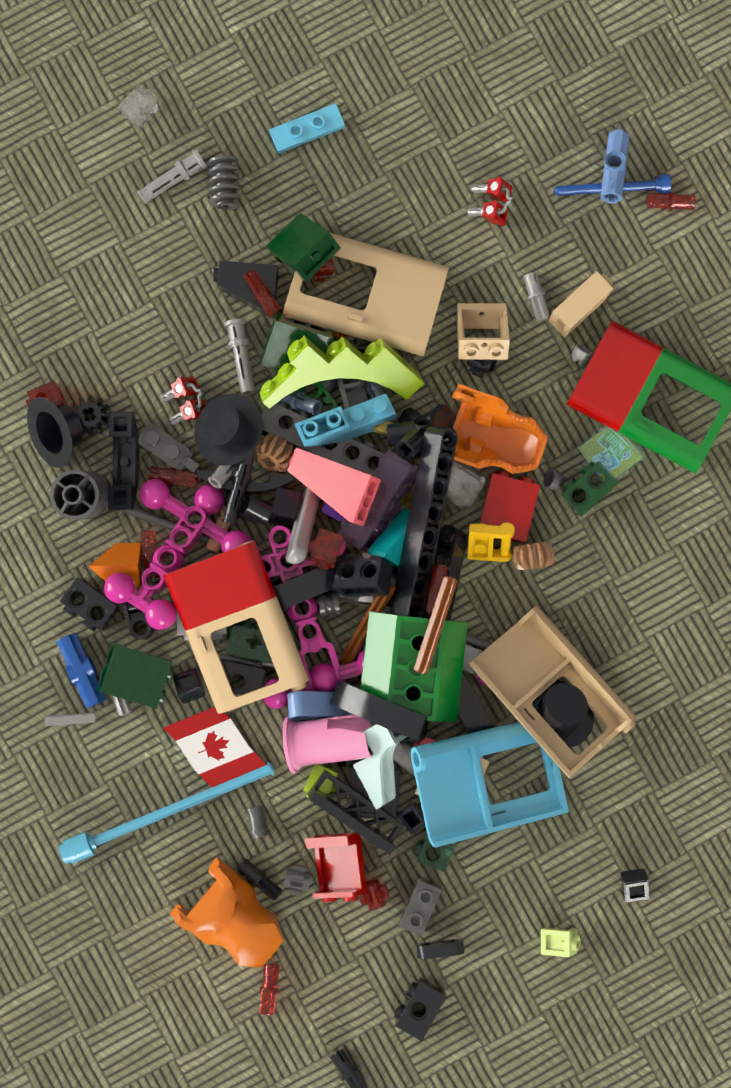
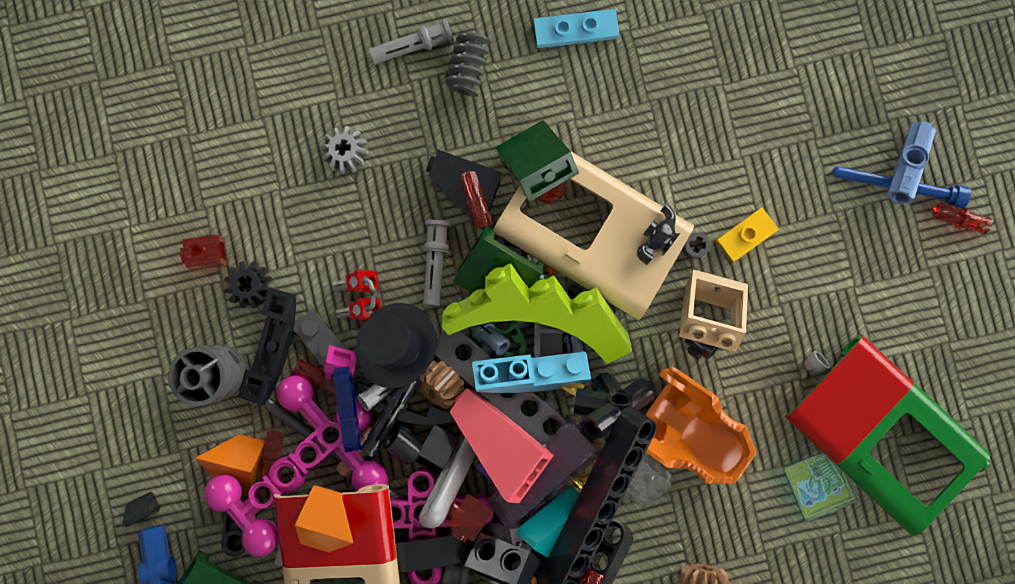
camera: 15 degrees right, 0 degrees up
(52, 625) = (140, 509): none -> black slope
(53, 431) = (201, 292): black hose -> none
(93, 599) = (179, 505): black brick -> none
(132, 279) = (338, 143): none -> light grey gear
(186, 456) = (338, 357): none -> dark pink tile
(203, 490) = (347, 409): none -> clear blue beam
(211, 579) = (324, 521): none -> orange slope
(420, 282) = (659, 236): none -> black piece
(462, 288) = (700, 253): none -> dark grey bush
(482, 538) = (652, 549): yellow plate -> none
(493, 211) = (761, 177): piece -> none
(496, 263) = (747, 235): none -> yellow plate
(510, 502) = (690, 518): red panel -> none
(536, 296) = (783, 284): light grey axle -> none
(553, 479) = (748, 491): dark grey hinge -> none
(581, 303) = (834, 309): tan window -> none
(593, 492) = (792, 529): dark green brick -> none

